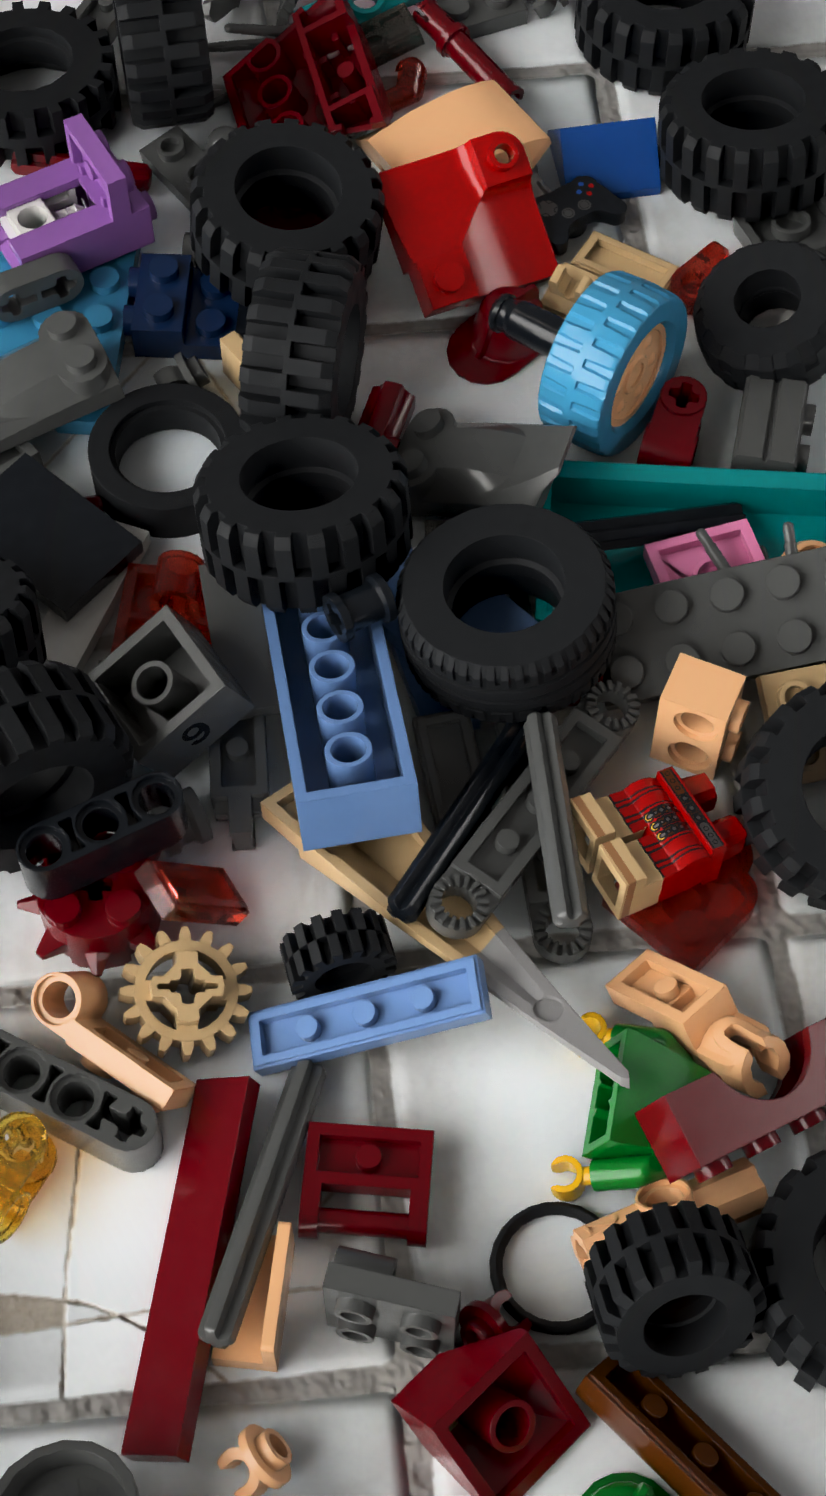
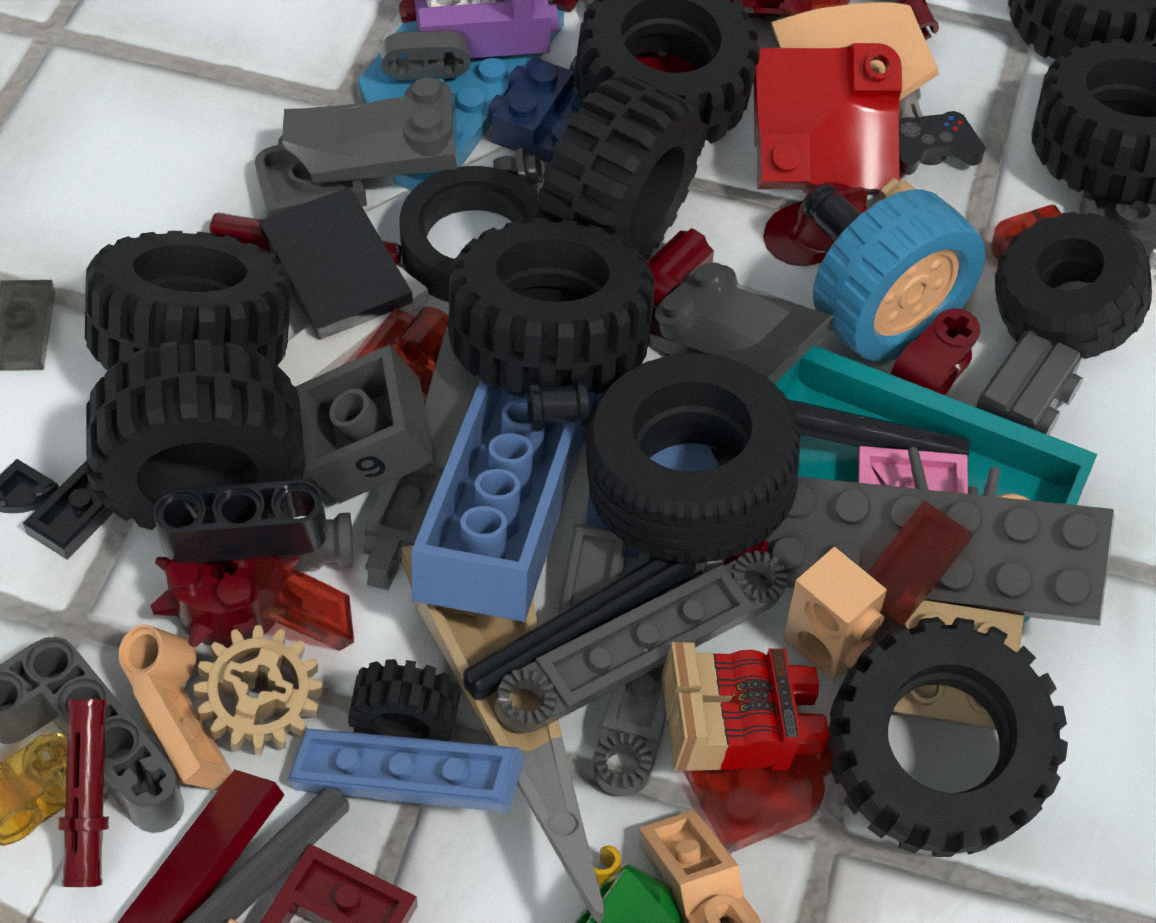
camera: 20 degrees right, 5 degrees down
(71, 1159) = (84, 794): none -> dark red pin
(555, 821) = (649, 657): dark grey axle -> none
(604, 254) = (965, 198): tan tile -> none
(614, 154) = (994, 103): blue slope -> none
(757, 636) = (918, 560): none -> clear red tile

